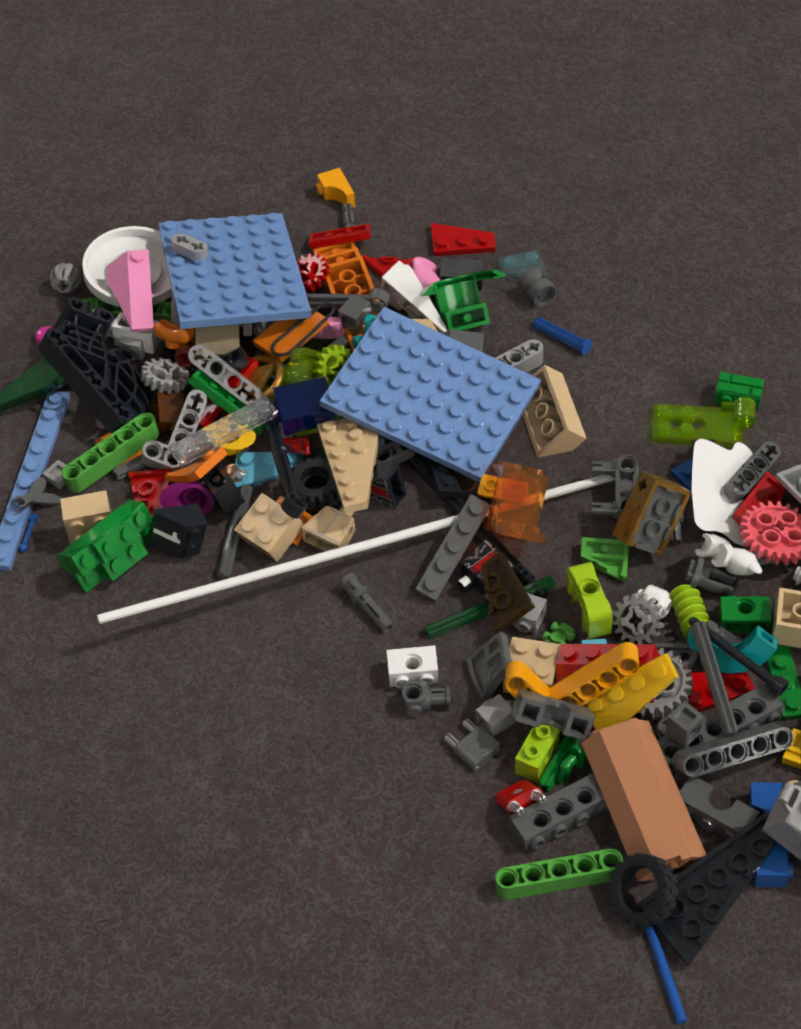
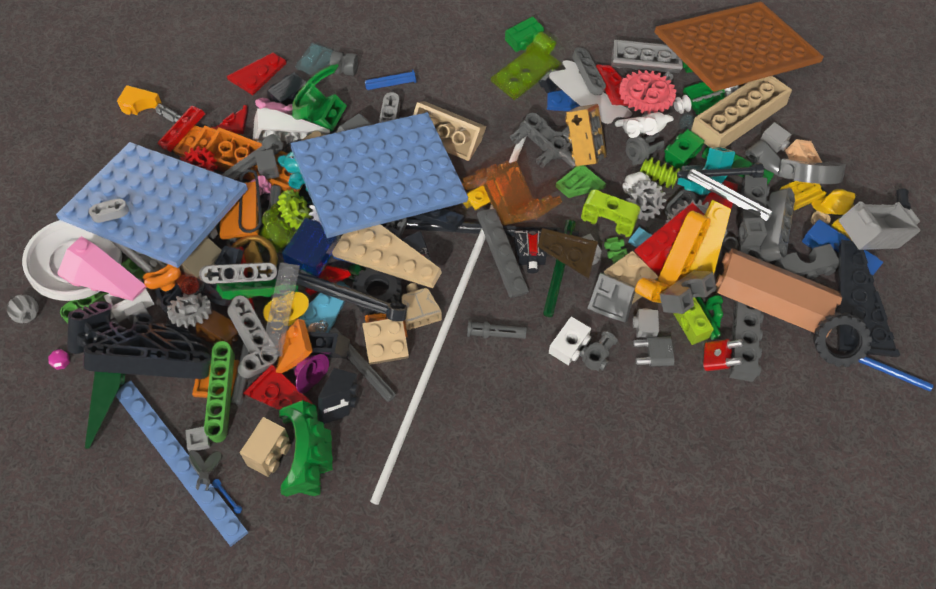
camera: 55 degrees left, 10 degrees up
(548, 882) = (787, 383): bright green beam -> none

